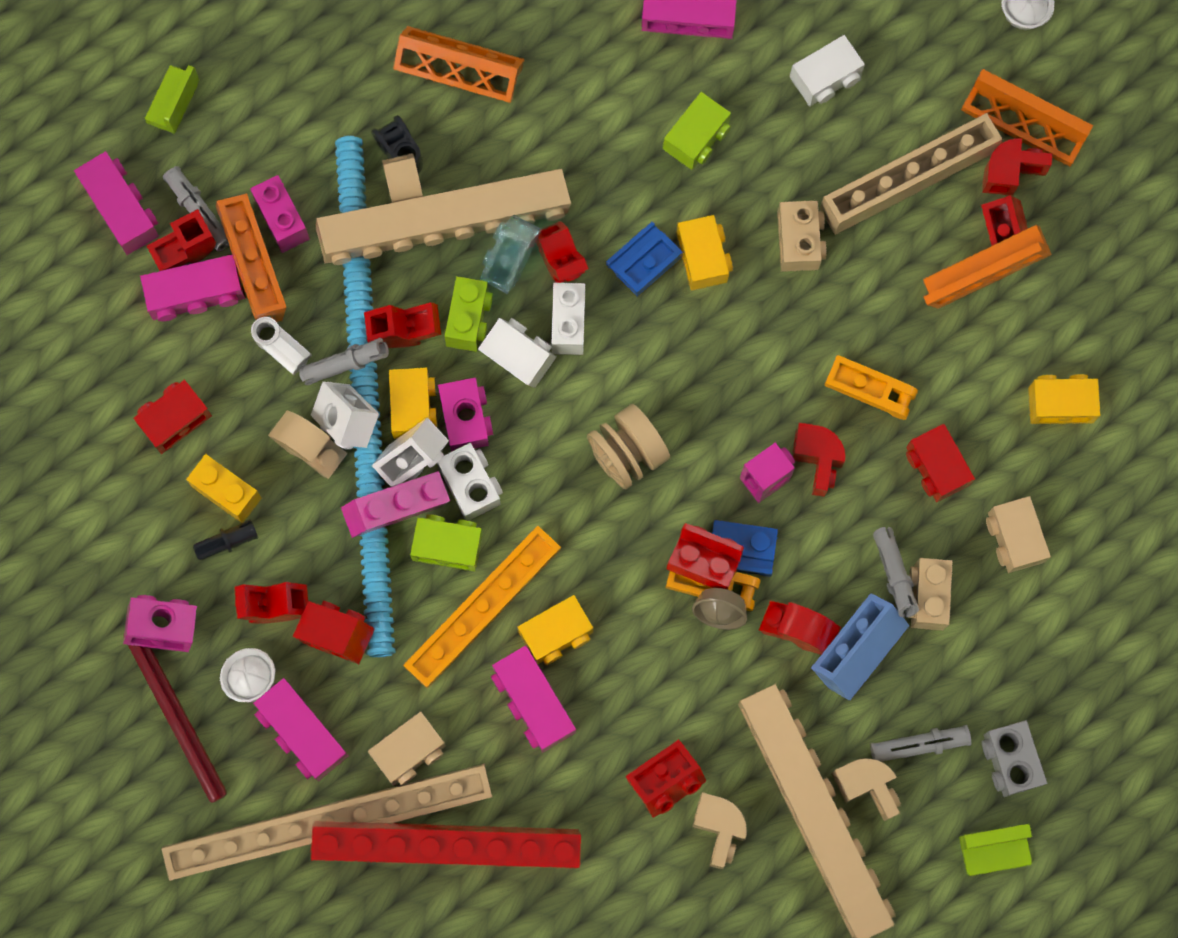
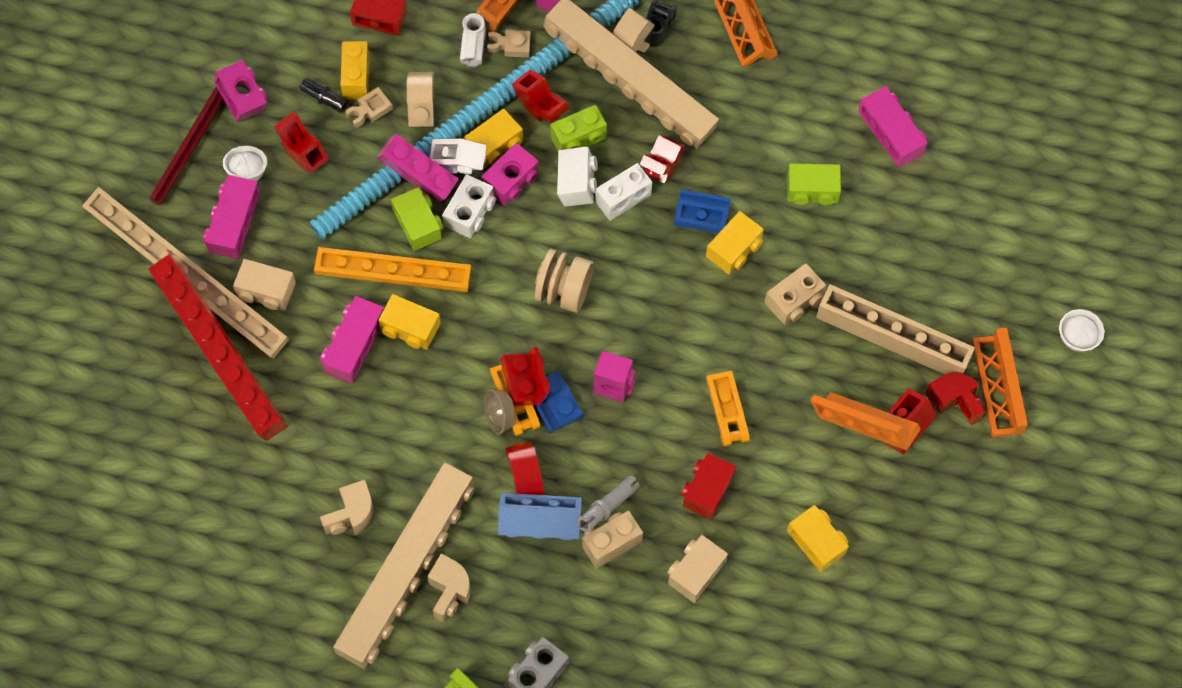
camera: 55 degrees right, 10 degrees down
(277, 498) = (370, 105): none -> tan plate
(311, 305) = (515, 43): none -> tan plate
(334, 631) = (309, 190): red brick -> none
(344, 415) = (453, 101): white brick -> none
(354, 358) = (492, 81): light grey pin -> none
(510, 253) = (636, 126): clear light blue brick -> none
(666, 778) = (359, 456): red bracket -> none
(819, 447) = (658, 405): red brick -> none
(827, 71) = (922, 234): white brick -> none
(958, 737) = (526, 624): light grey pin -> none

